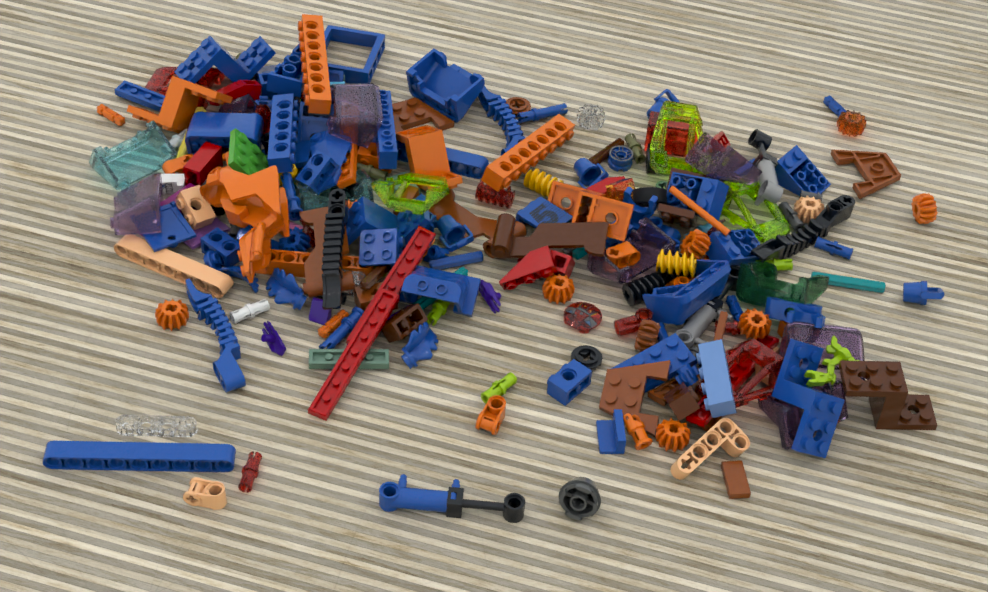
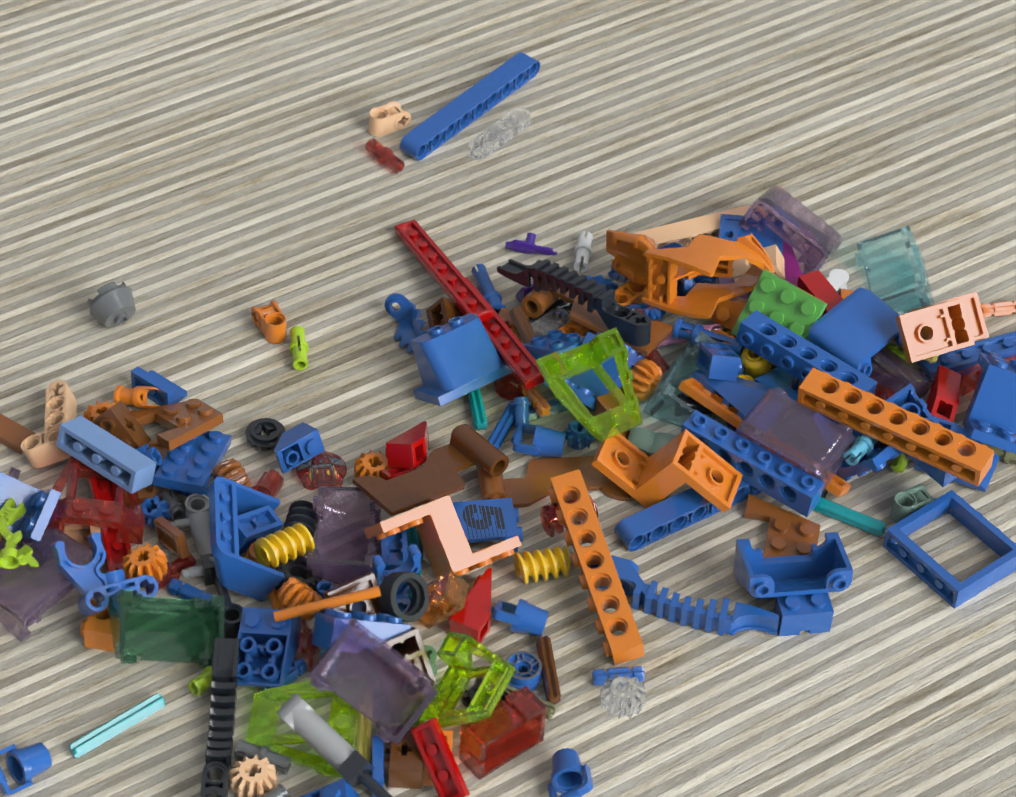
camera: 130 degrees right, 0 degrees up
(172, 314) = (627, 199): orange gear -> none
(225, 367) = (522, 199): blue piece -> none
(328, 358) = (429, 291): sand green plate -> none
(332, 324) = (506, 292): orange axle -> none
(451, 502) = (210, 239): piece -> none
(490, 296) = (421, 415): dark purple piece -> none
(522, 104) = (709, 638): dark orange gear -> none
(536, 114) = (679, 650): blue pin -> none
(569, 382) = (248, 395): blue brick -> none
(581, 130) = (600, 676): none -> blue axle
(586, 327) = (298, 446): none -> blue slope
(623, 255) = (352, 533): orange piece -> none
(833, 248) = (175, 756): blue pin -> none

